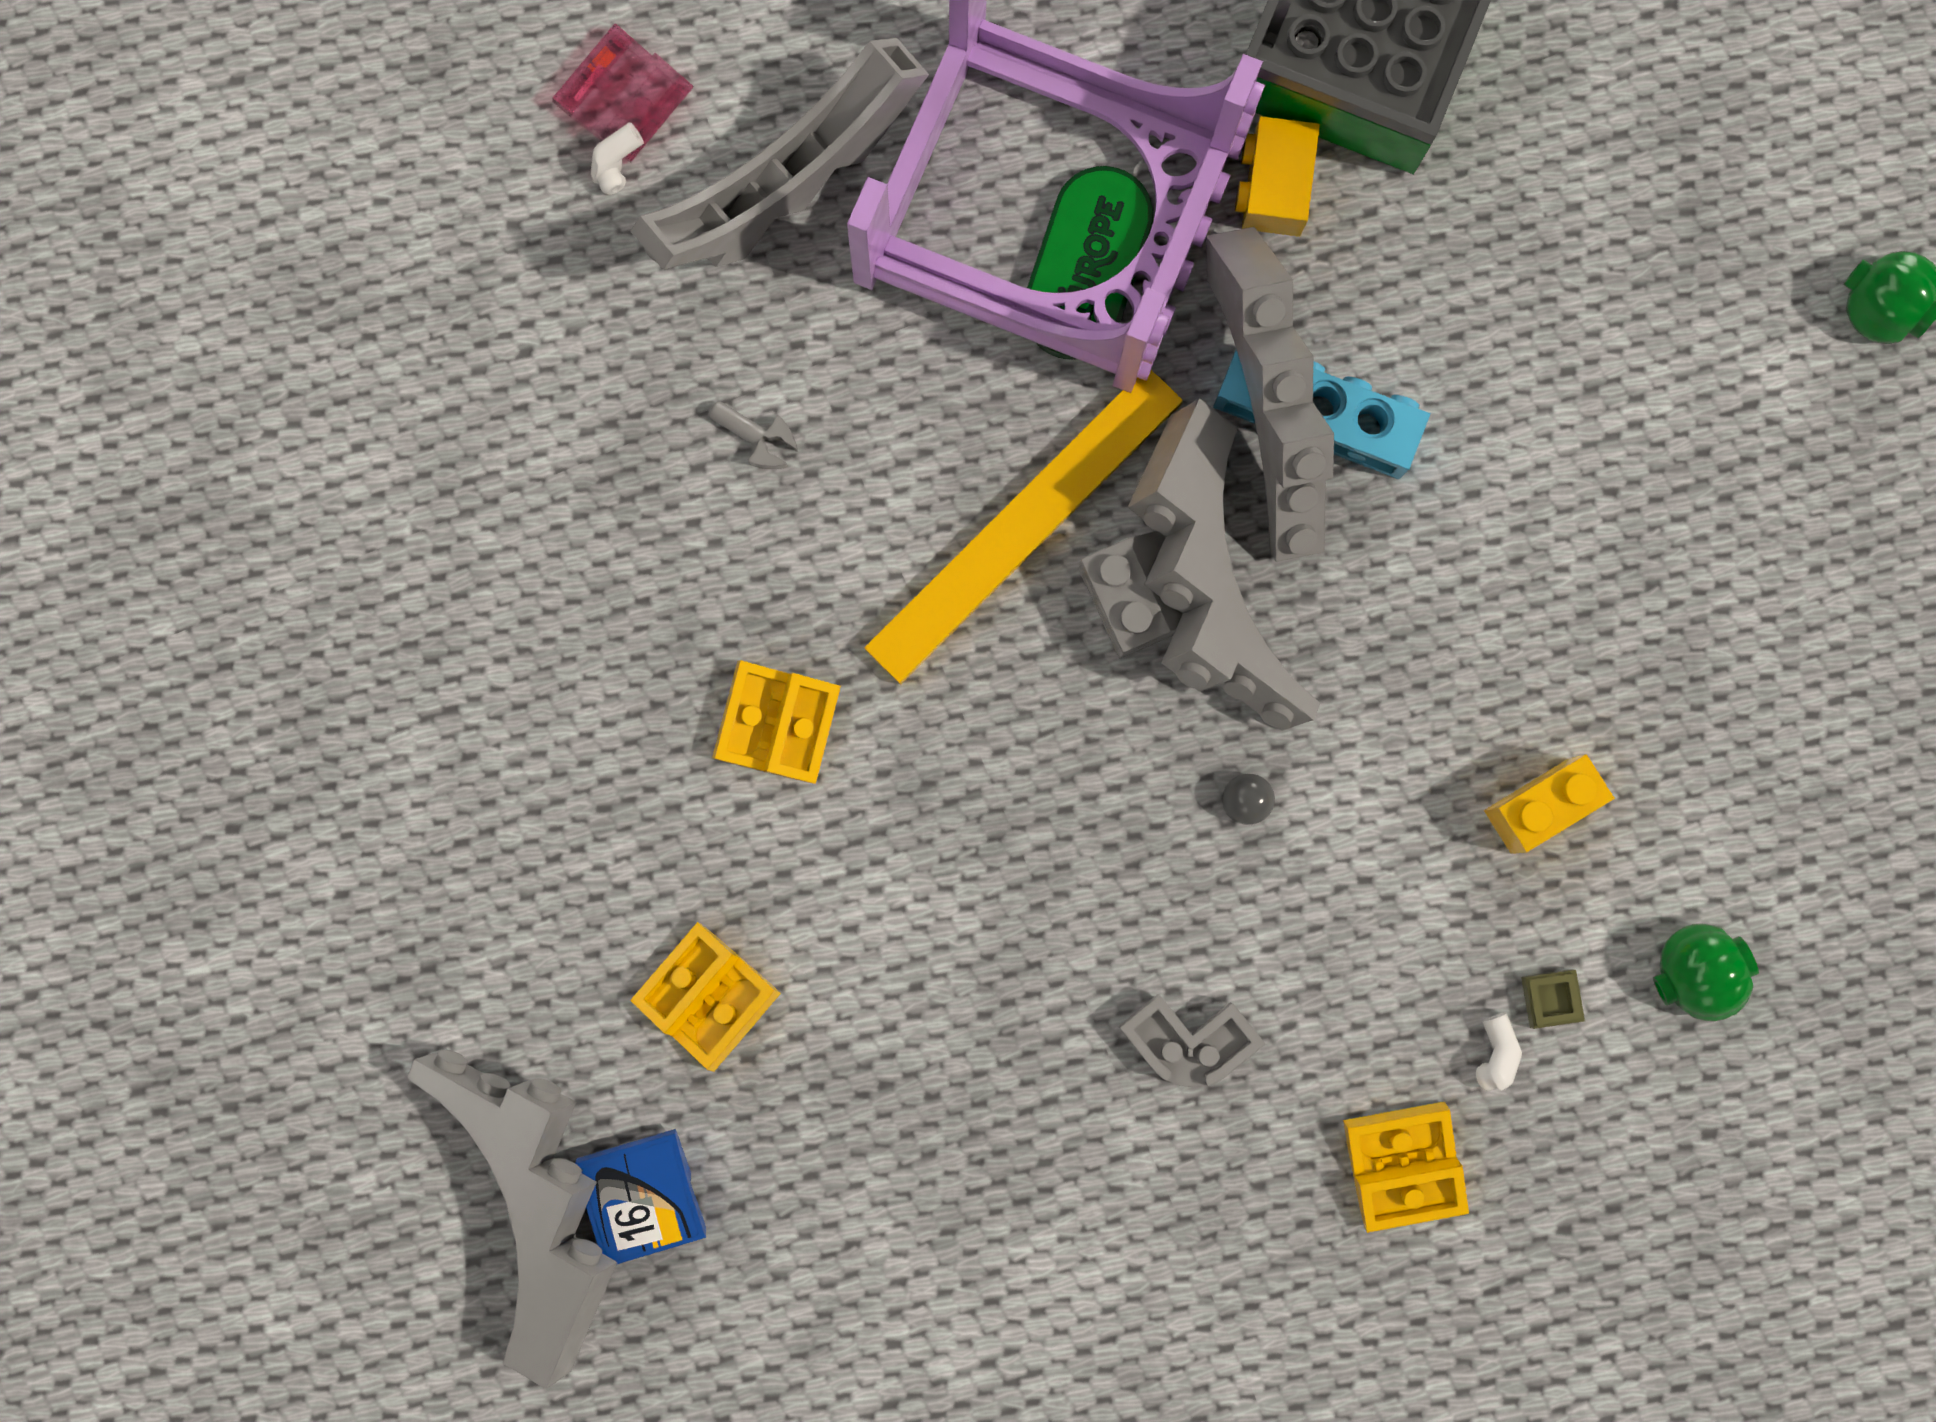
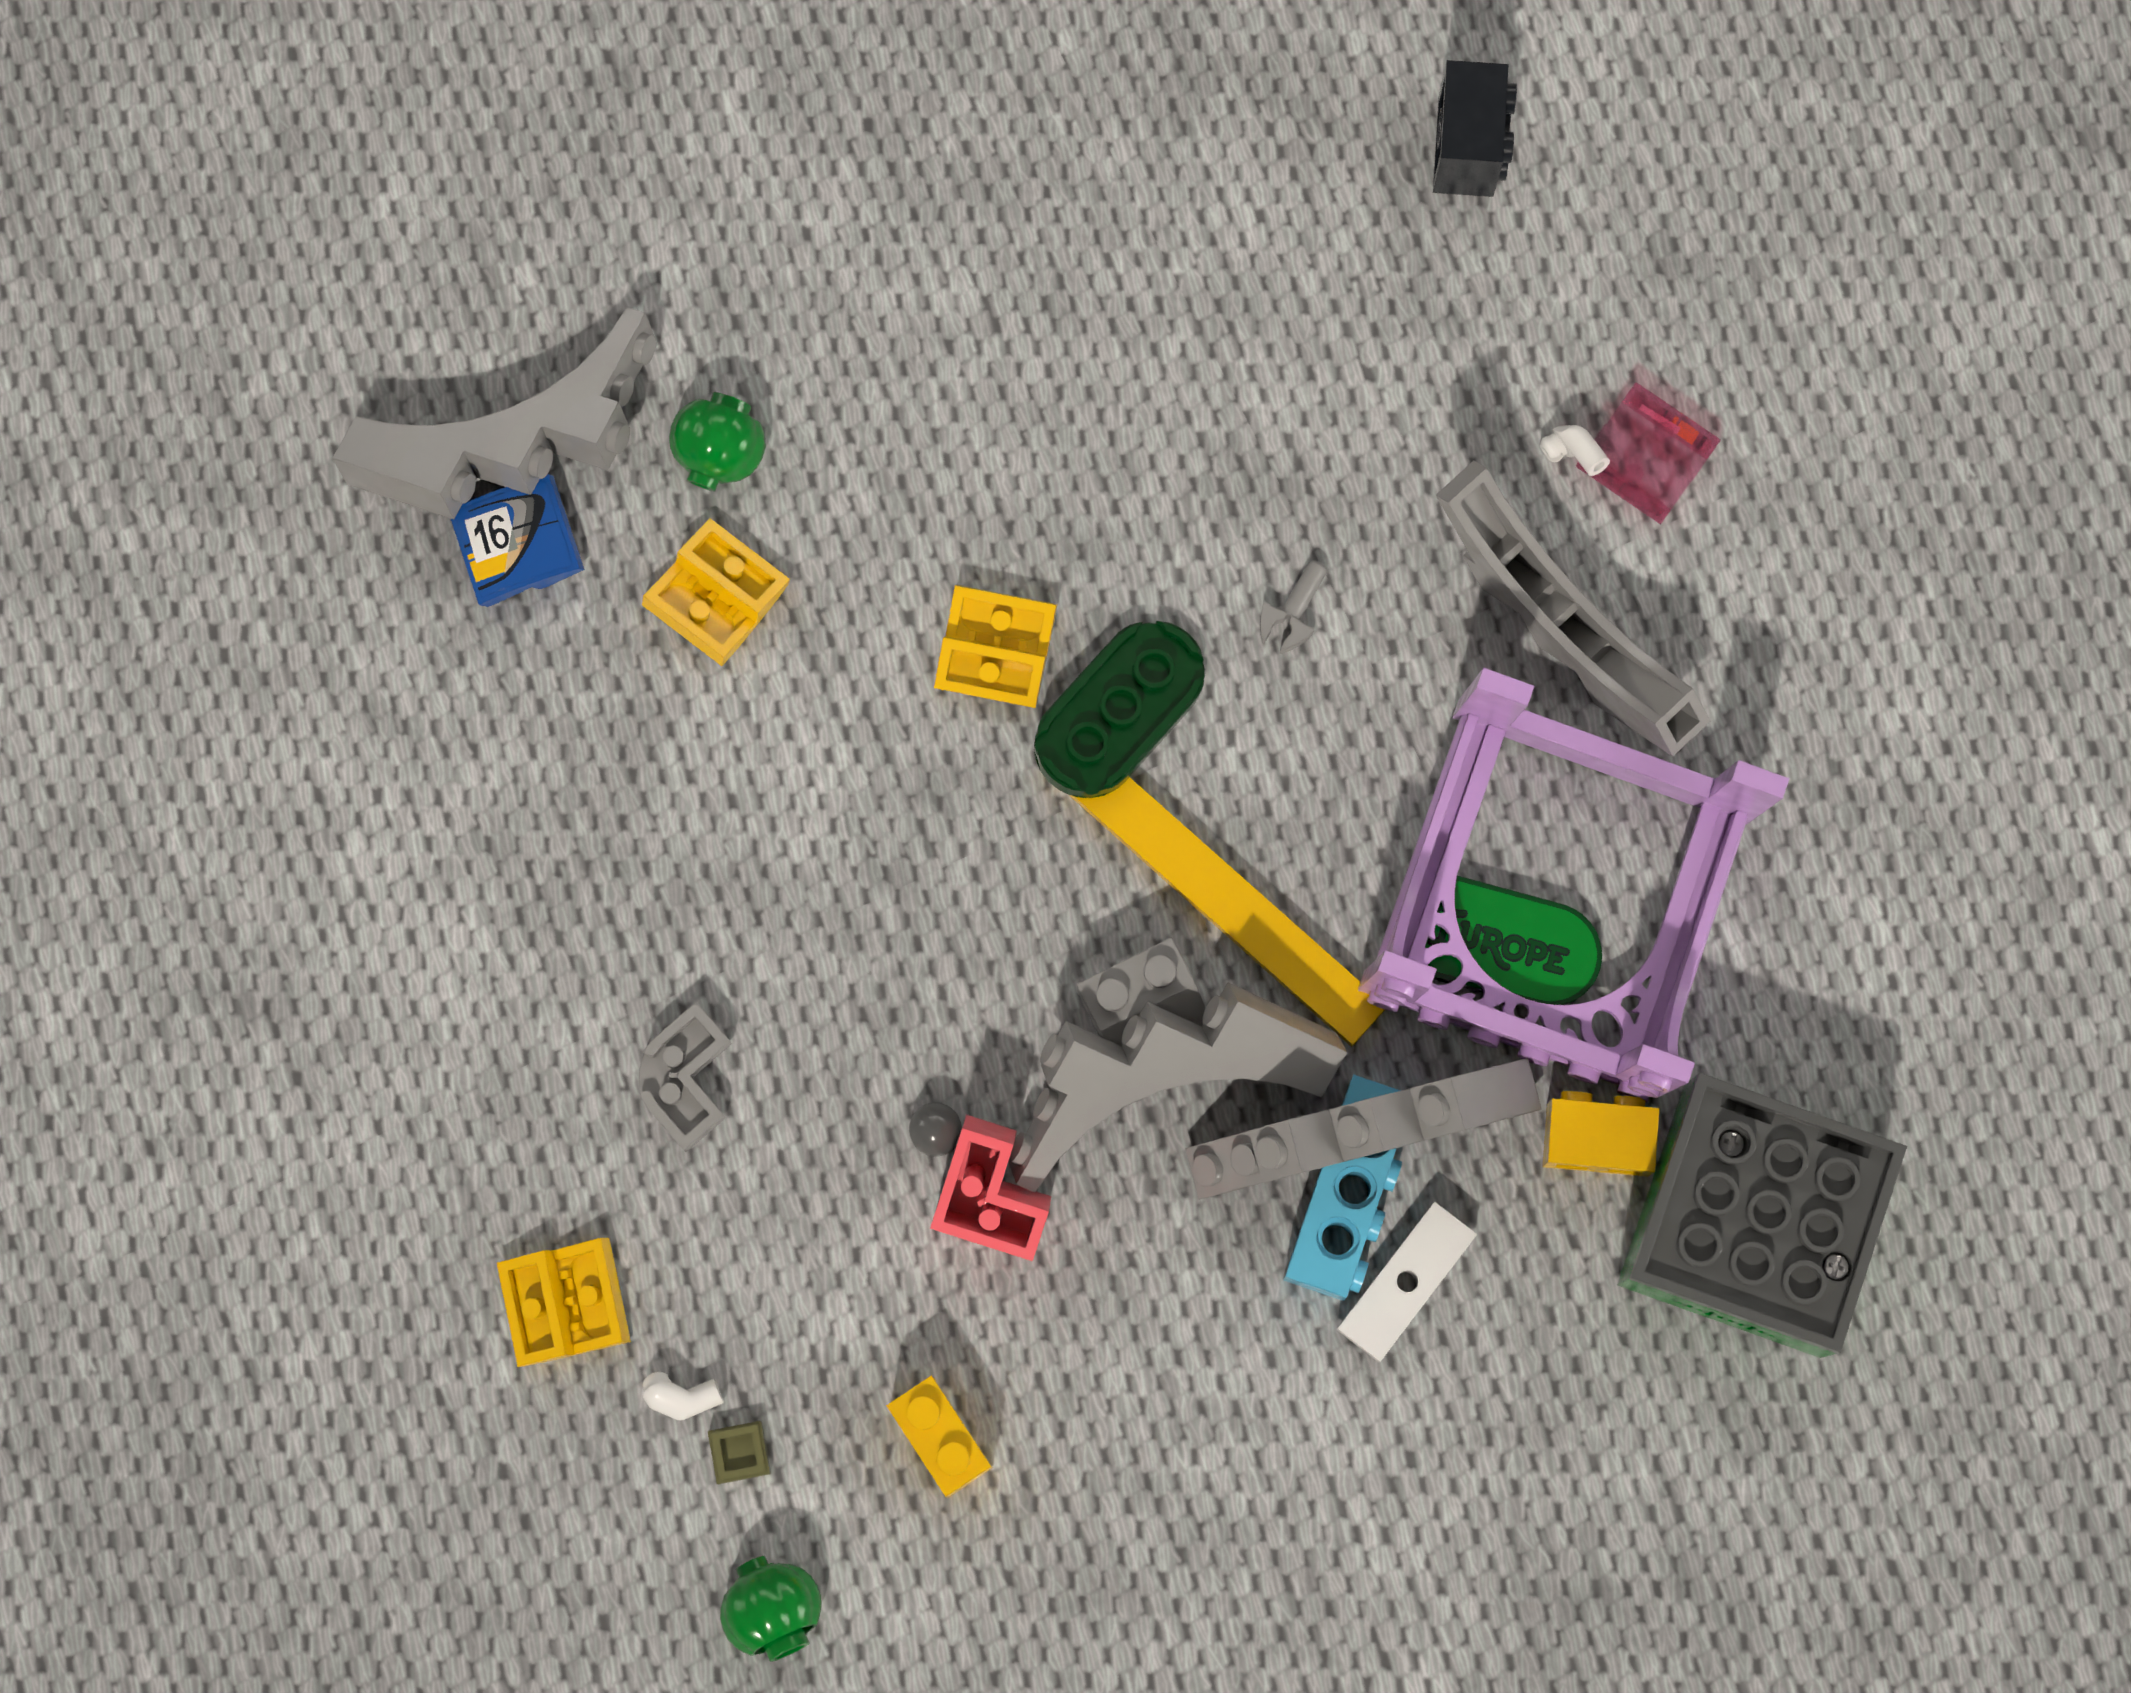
camera: 85 degrees right, 5 degrees down
(284, 229) = (1473, 128): none -> black brick
(551, 990) = (717, 441): none -> green plant
(847, 604) = (1119, 709): none -> dark green tile
(1326, 755) = (980, 1204): none -> coral brick
(1434, 383) = (1426, 1255): none -> white tile

